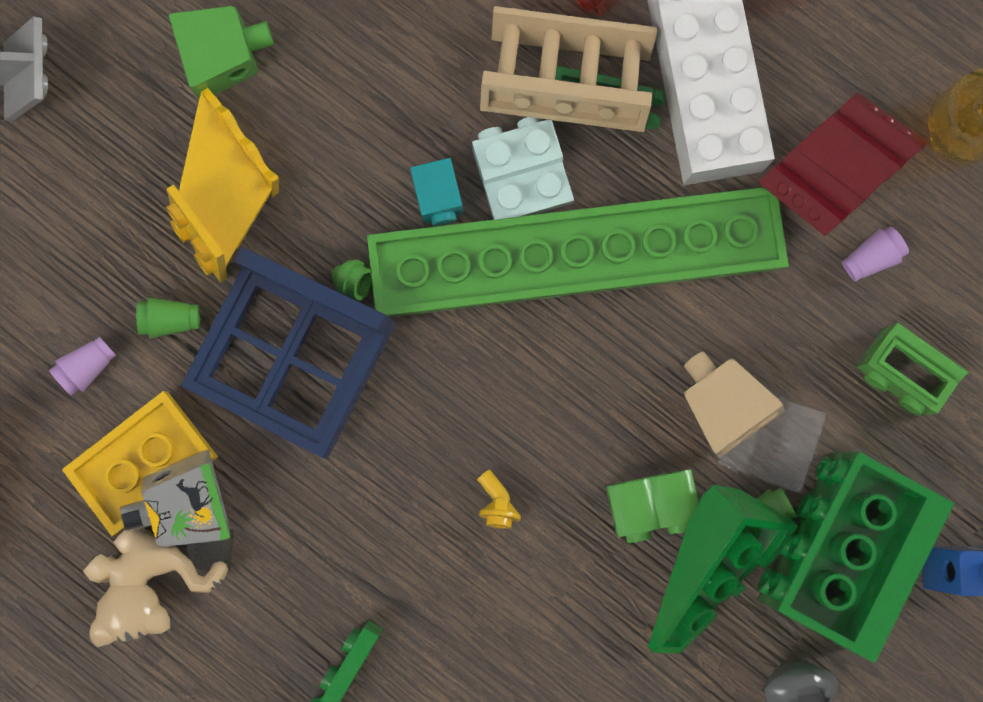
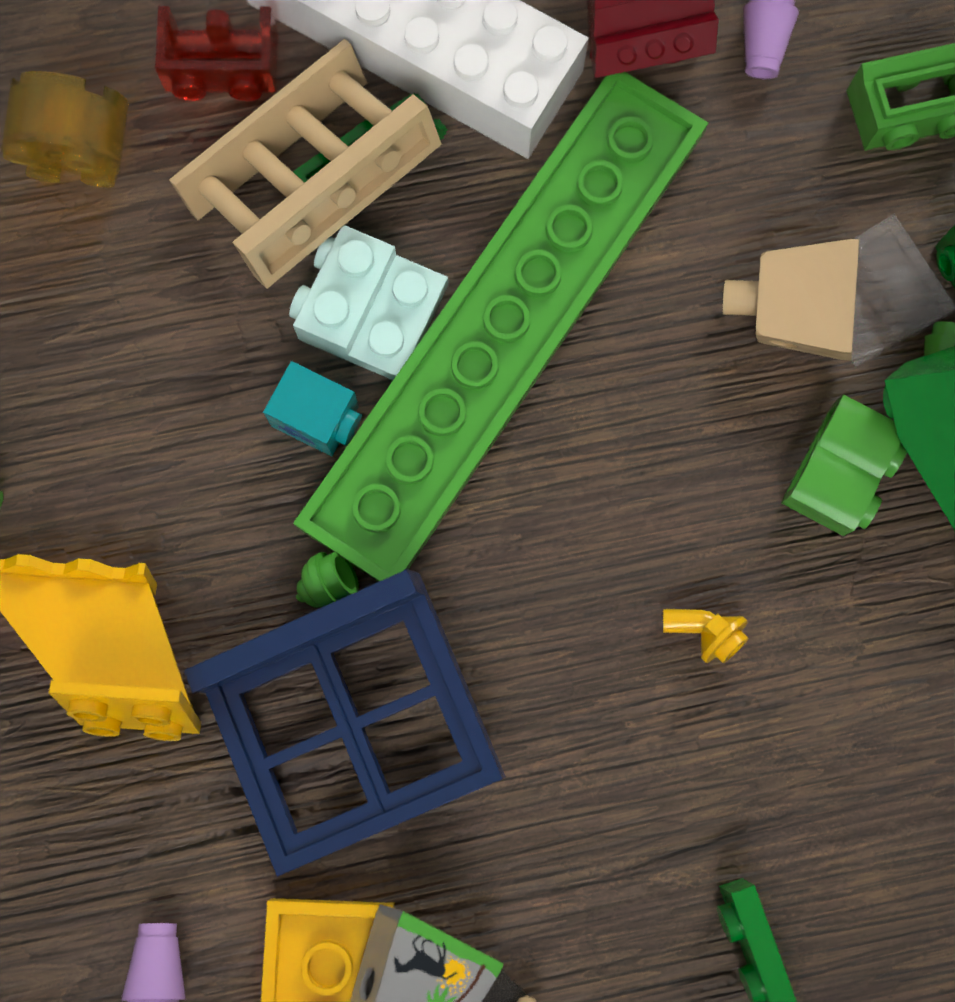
camera: 50 degrees left, 5 degrees down
(166, 317) = (185, 827): bright green cone -> none

